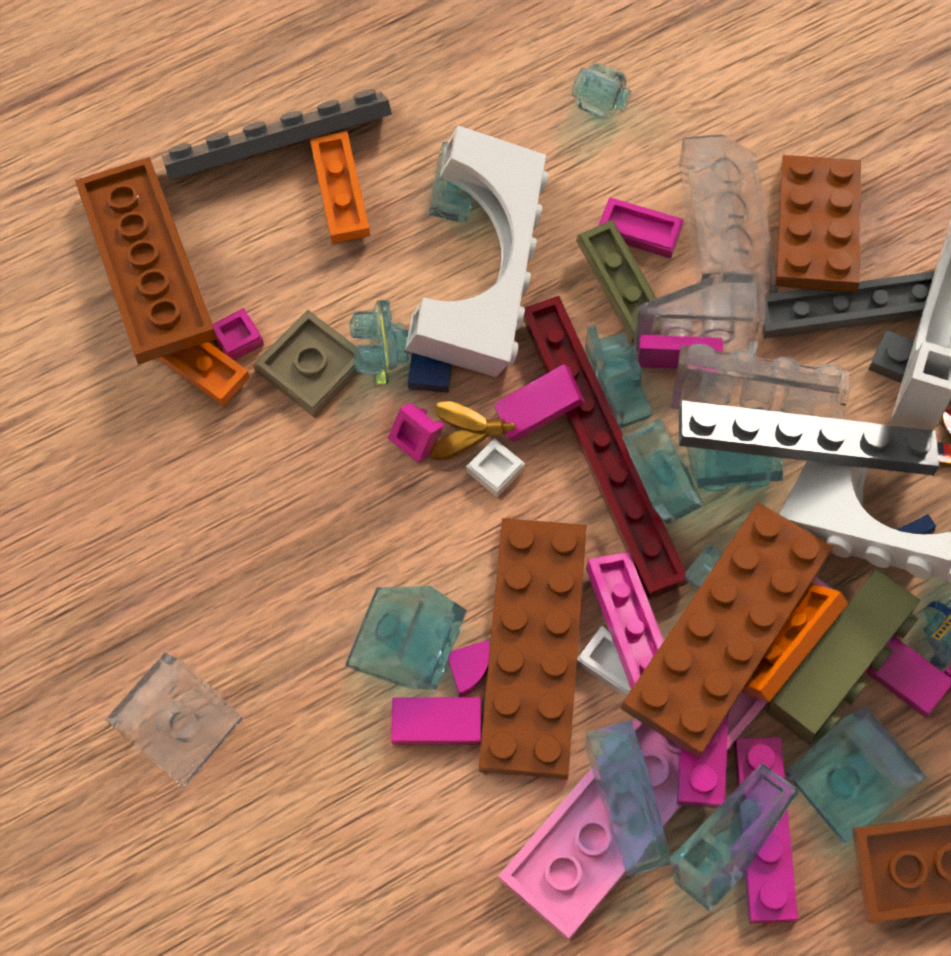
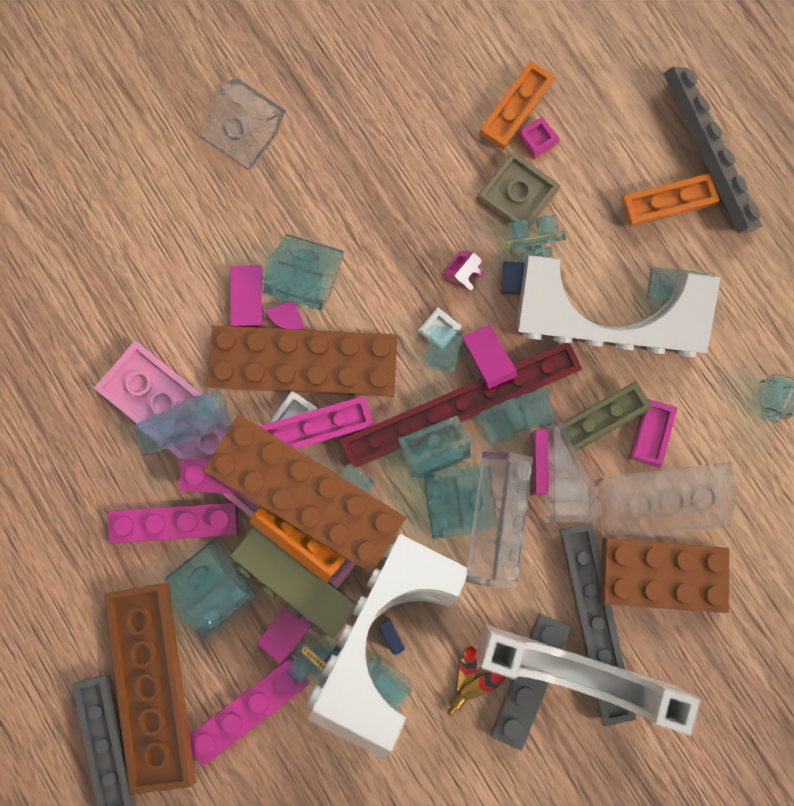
camera: 85 degrees right, 15 degrees up
(145, 261) = (591, 62): dark orange plate -> none
(473, 429) = (465, 310): pearl gold piece -> none
(528, 455) = (443, 348): none -> clear light blue panel
(731, 837) = (157, 496): clear light blue slope -> none
(808, 438) = (454, 555): plate -> none

